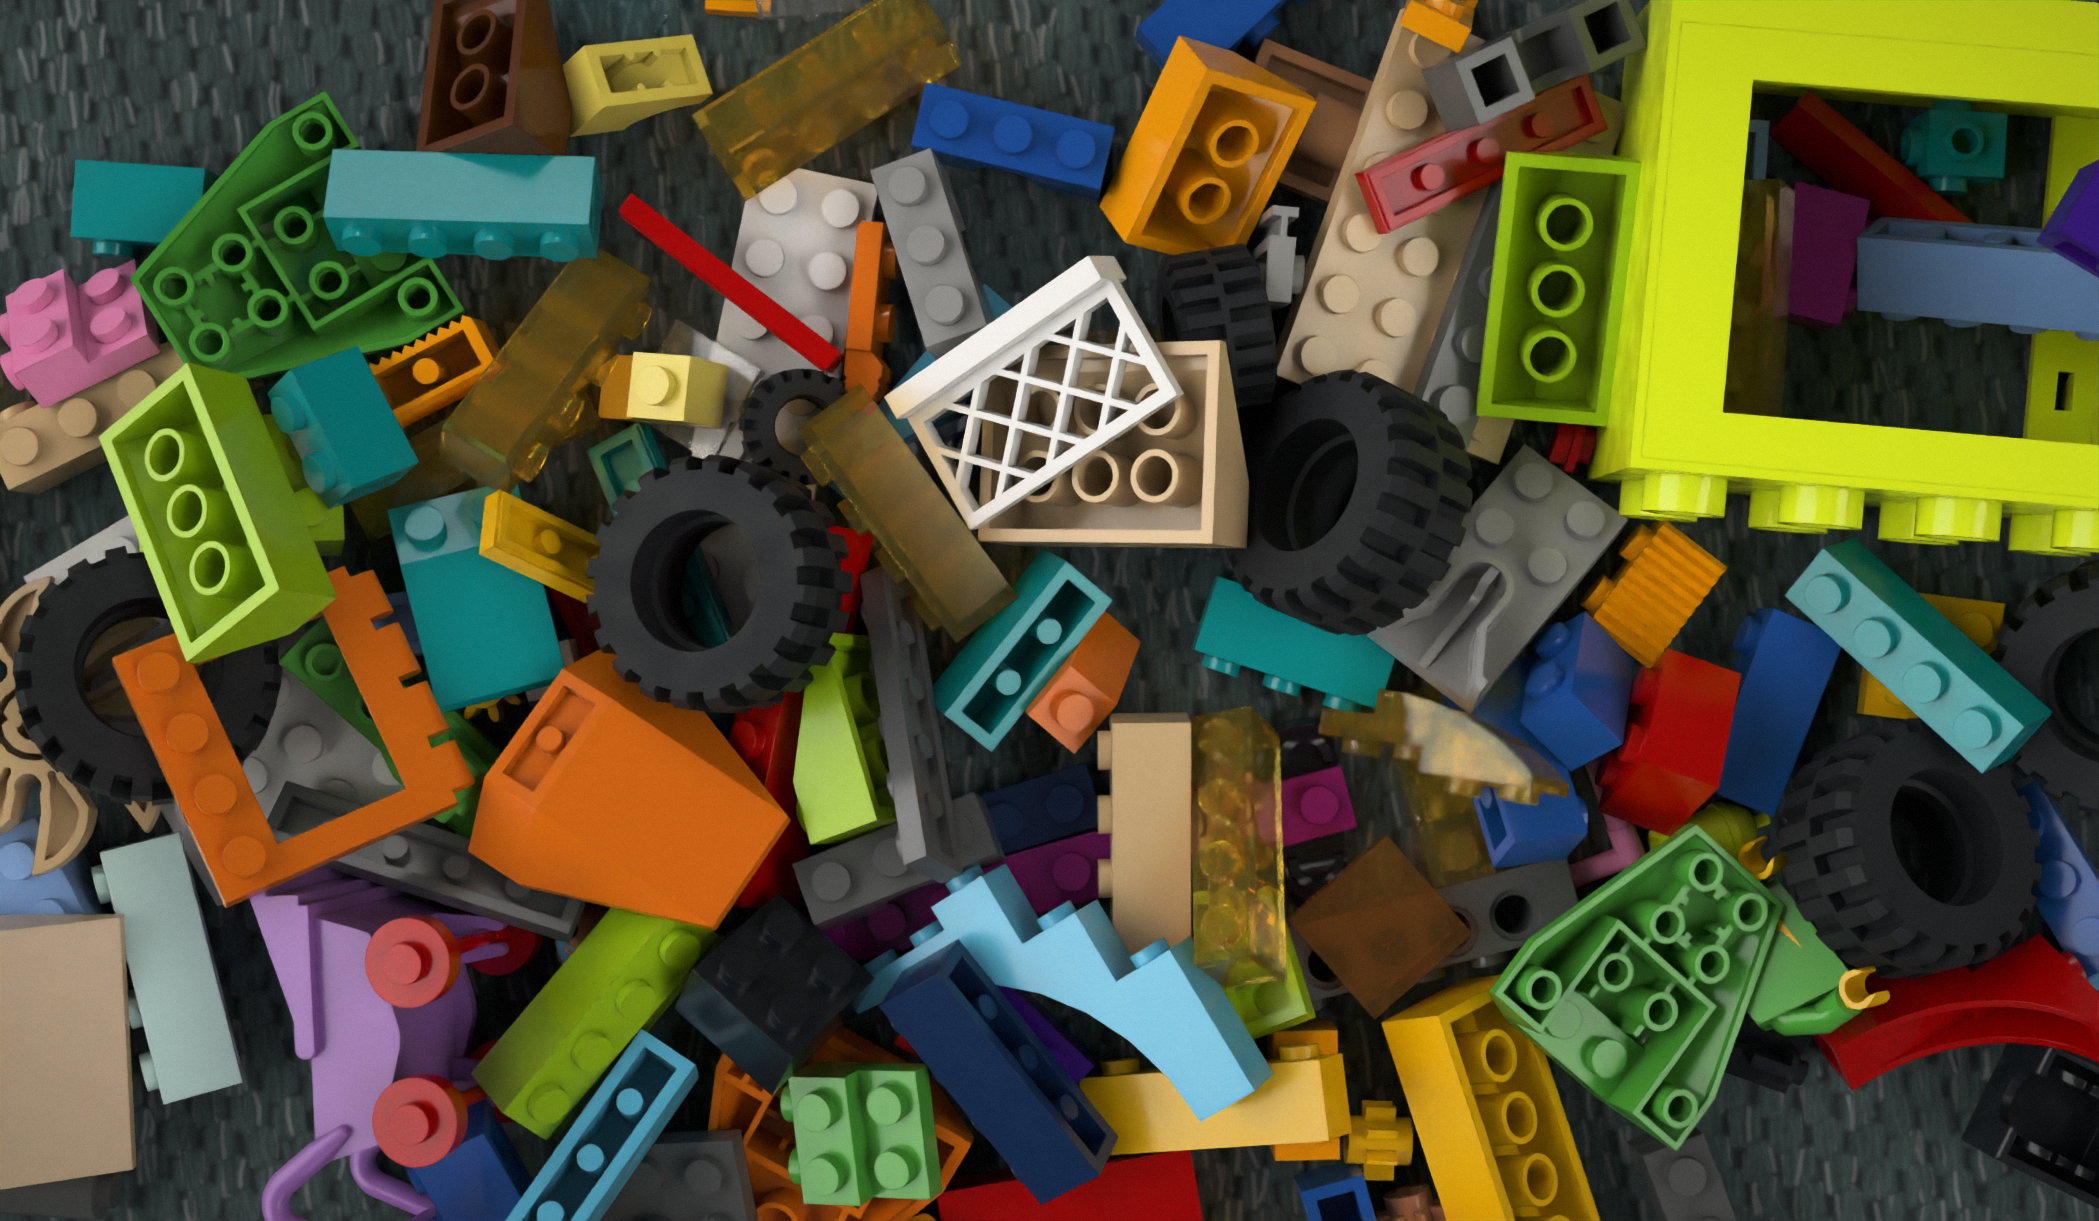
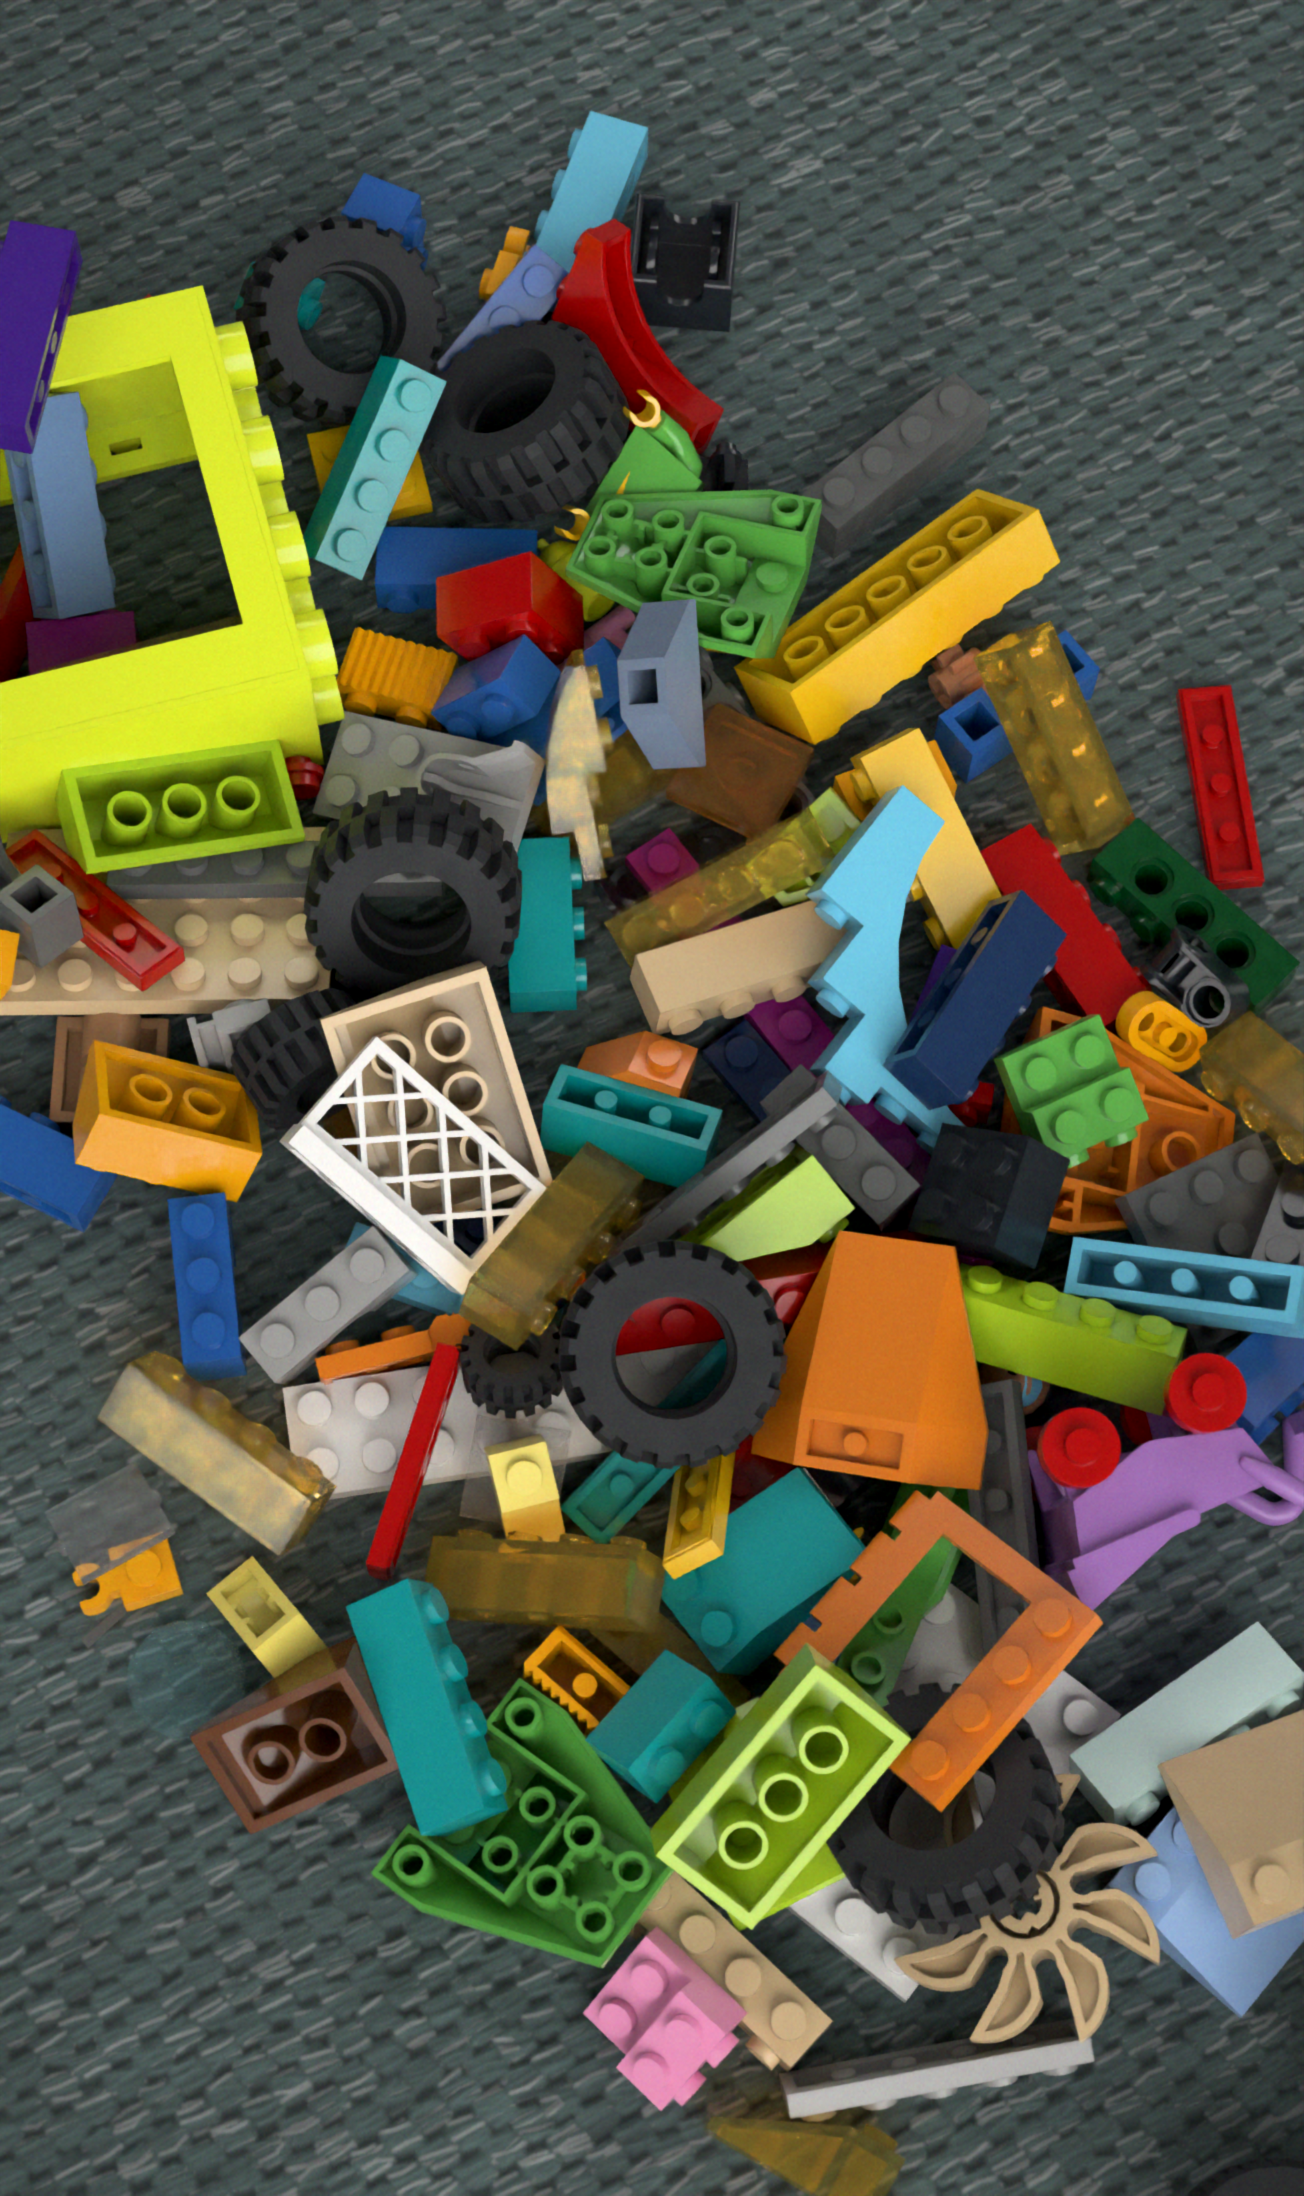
camera: 110 degrees left, 20 degrees down
(132, 203) = (534, 2013): teal brick -> none
(1379, 1140) = (908, 712): yellow gear -> none
(1501, 876) = (663, 685): none -> sand blue slope

